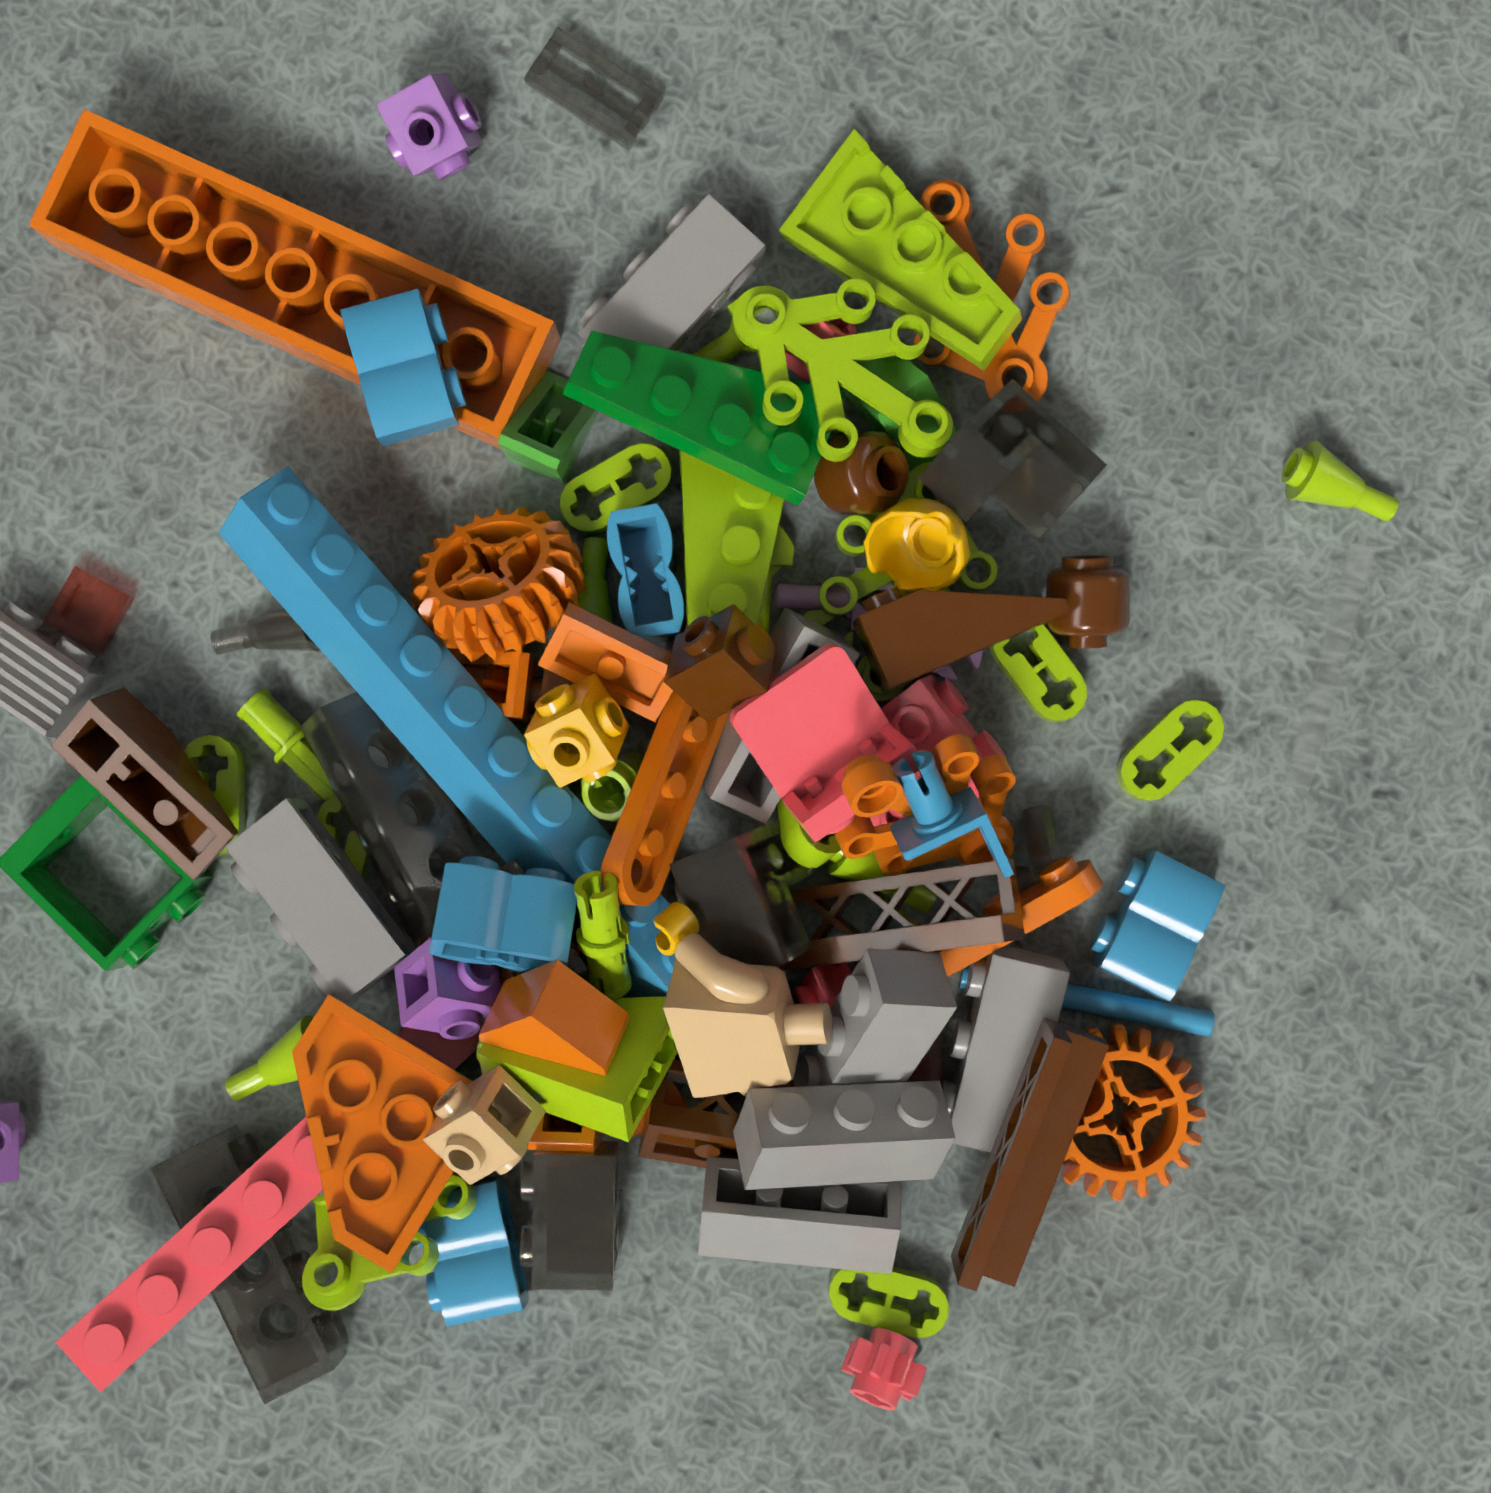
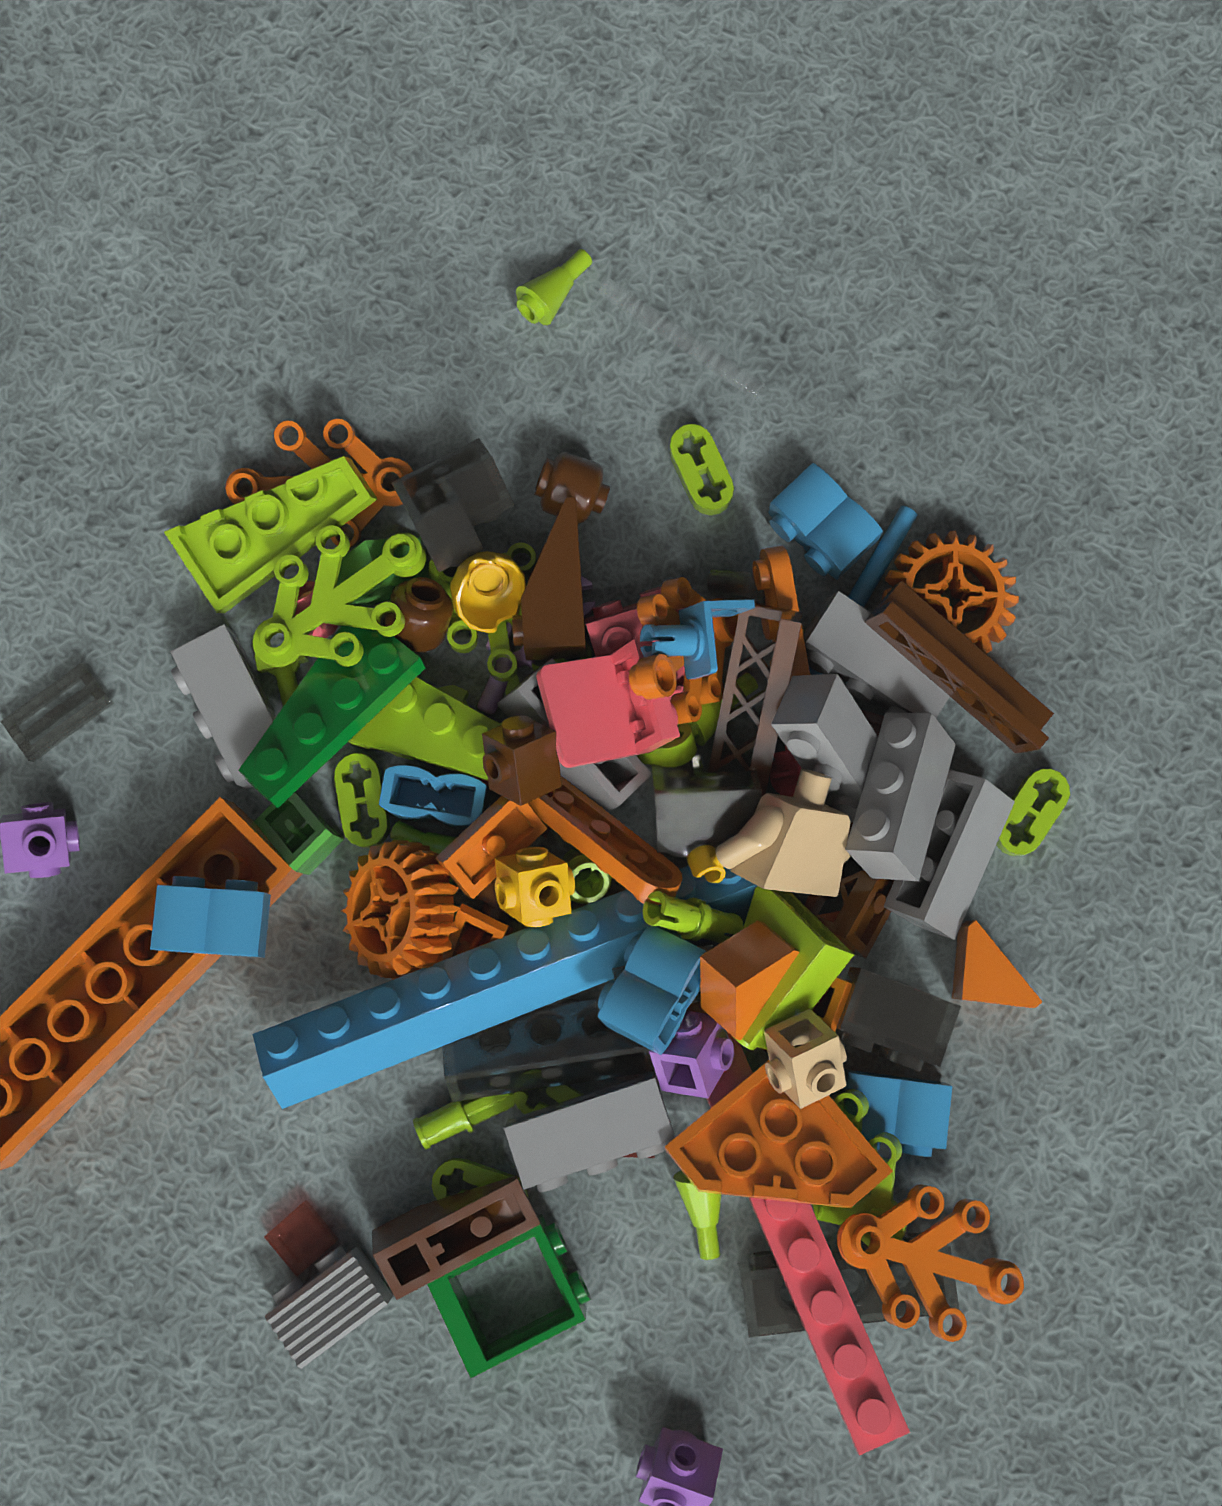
camera: 70 degrees left, 5 degrees down
(265, 631) = (370, 1099): clear smoke cone -> none
(309, 1341) = (923, 1259): none -> orange plant
(670, 1306) = (986, 973): none -> orange slope
(884, 1369) = (1083, 832): coral gear -> none
(1029, 684) = (618, 551): lime beam -> none

